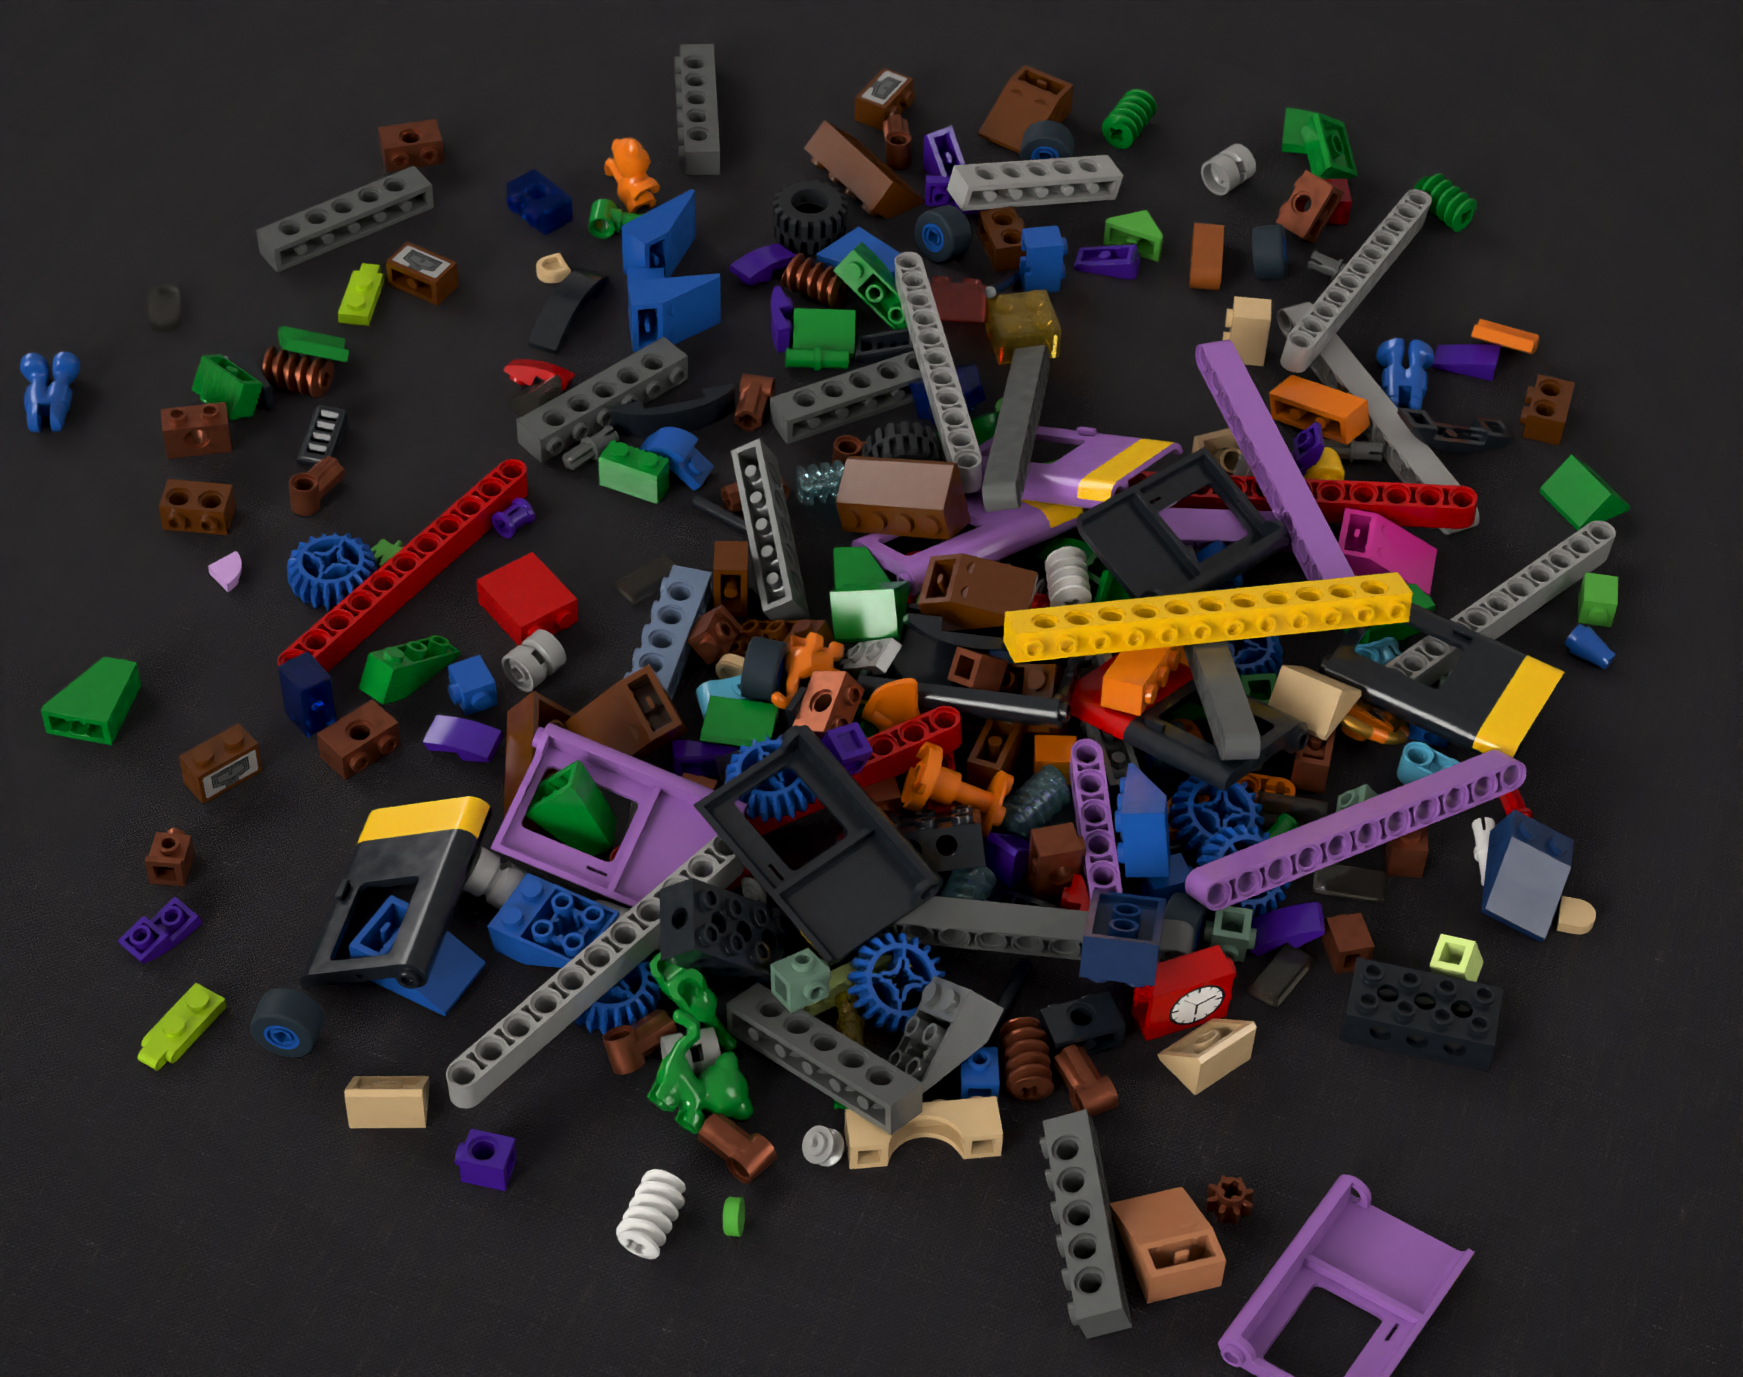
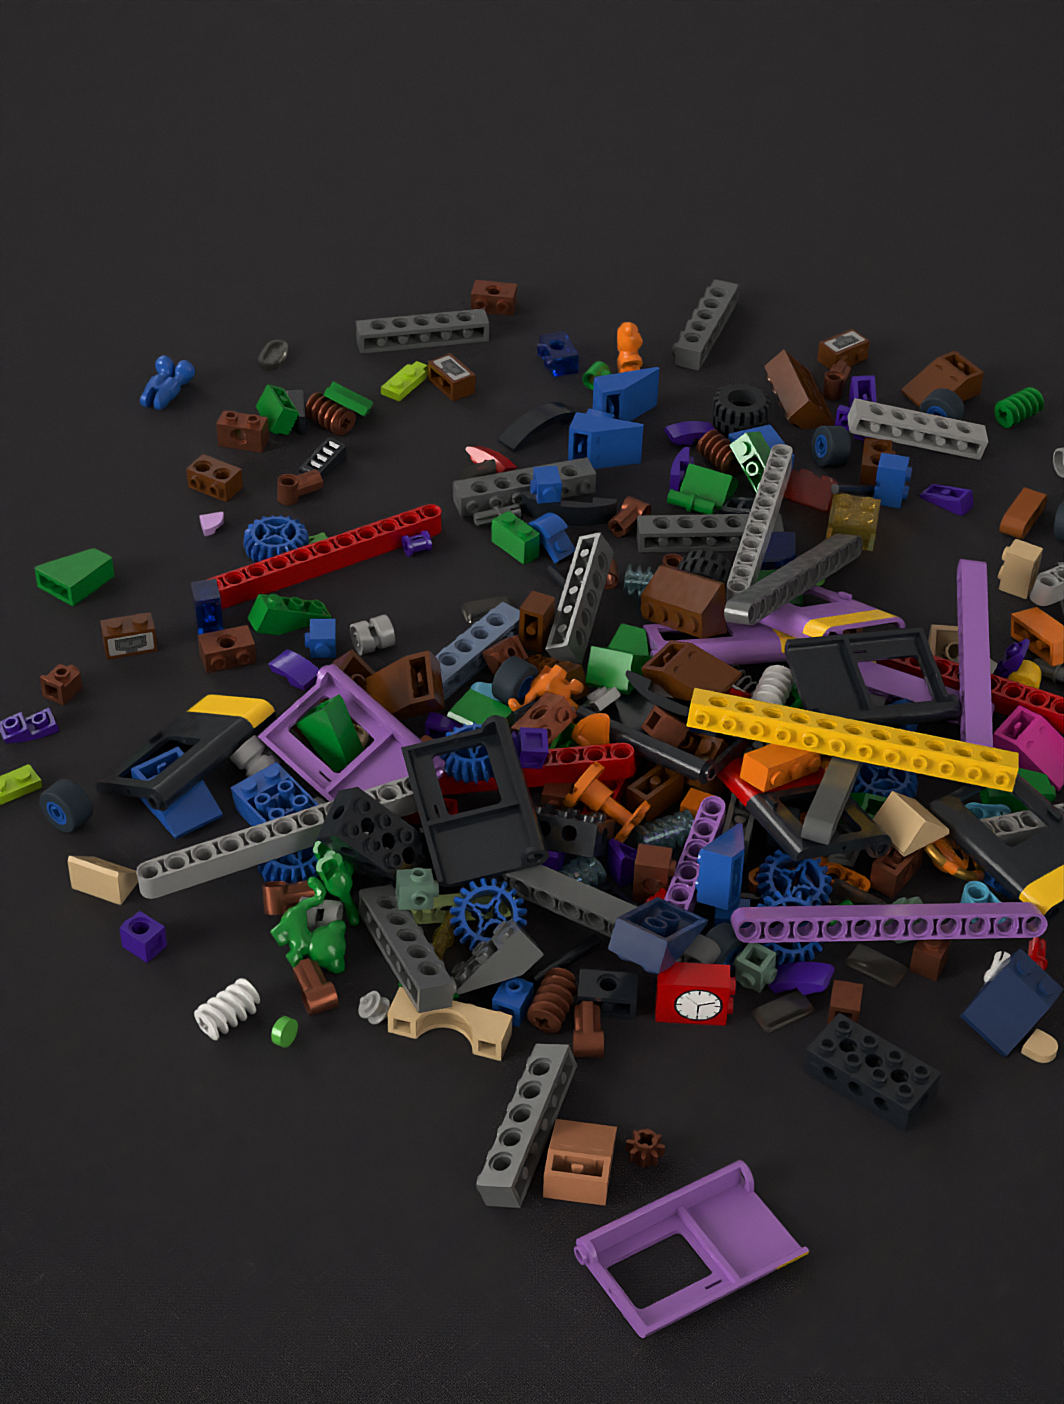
camera: 25 degrees right, 5 degrees down
(527, 598) = (394, 594): red brick -> none
(552, 268) = (542, 397): tan tile -> none
(642, 390) = (546, 484): none -> blue brick
(1135, 229) = (978, 480): bright green slope -> none
(1210, 1052) = (694, 1045): tan slope -> none
(1457, 958) = (919, 1041): yellowish green brick -> none

